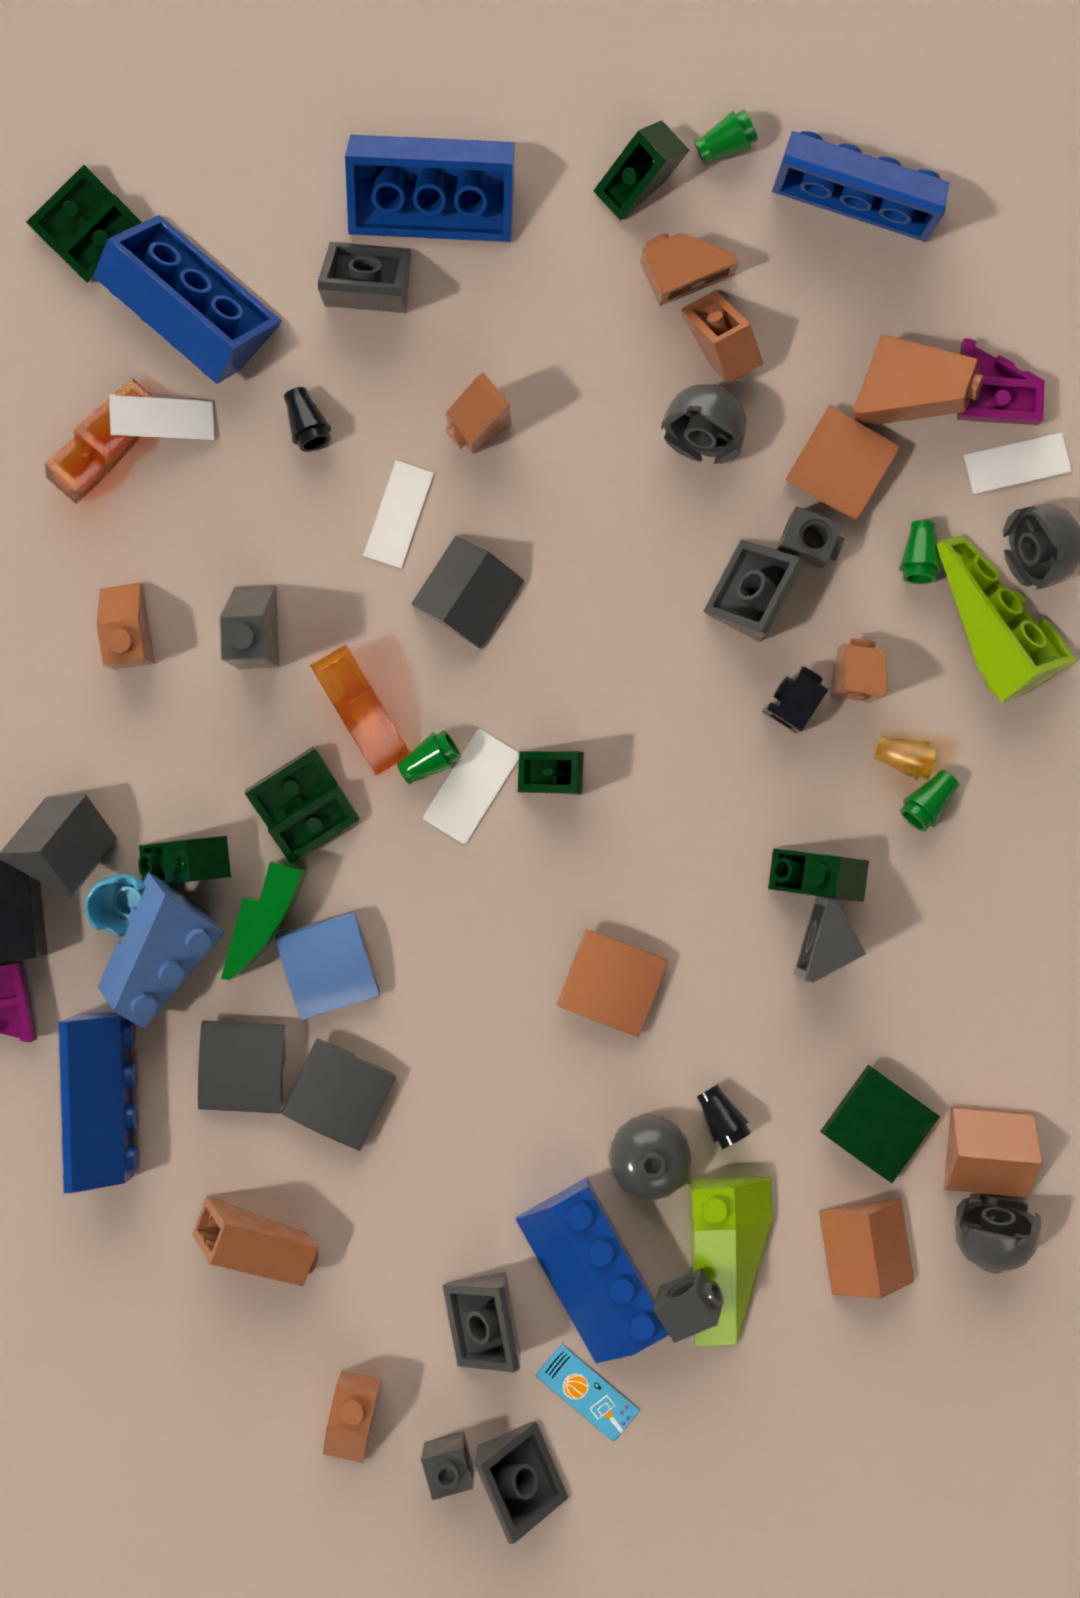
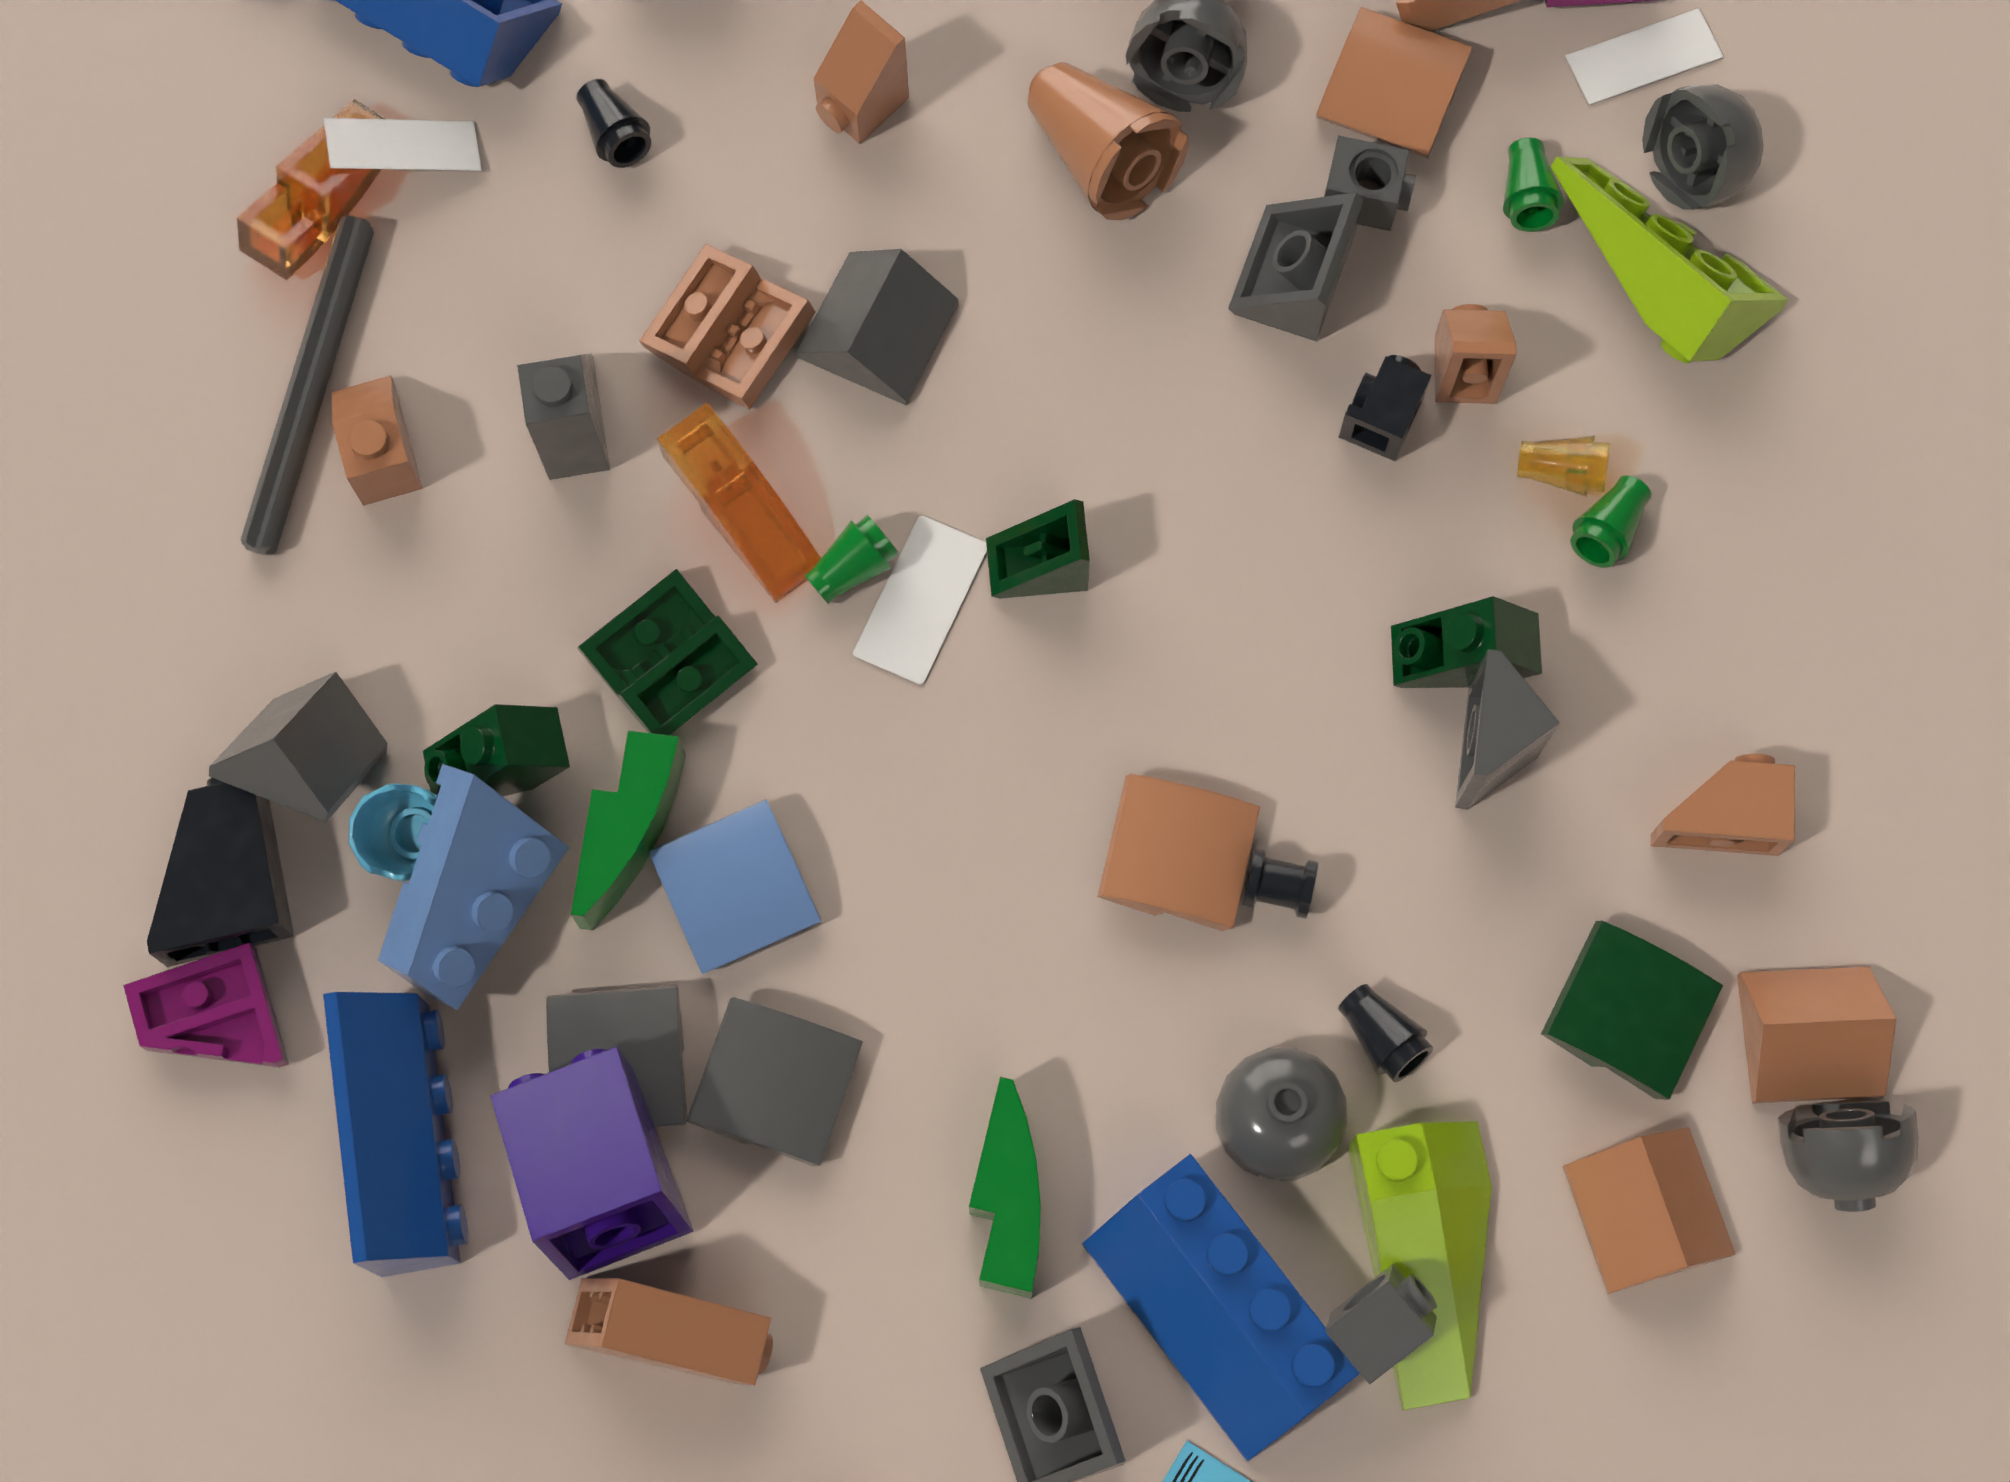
camera: 10 degrees left, 15 degrees down
(85, 581) = (307, 386): none -> dark grey axle
(215, 1135) = (589, 1163): none -> dark purple slope
(367, 579) = (727, 326): none -> nougat slope
(398, 514) = (767, 220): white sticker -> none
(473, 1189) = (1009, 1196): none -> green slope
(637, 481) = (1107, 138): none -> nougat cone
(673, 1013) = (1280, 883): none -> black bush
(970, 1006) = (1737, 810): none -> nougat slope

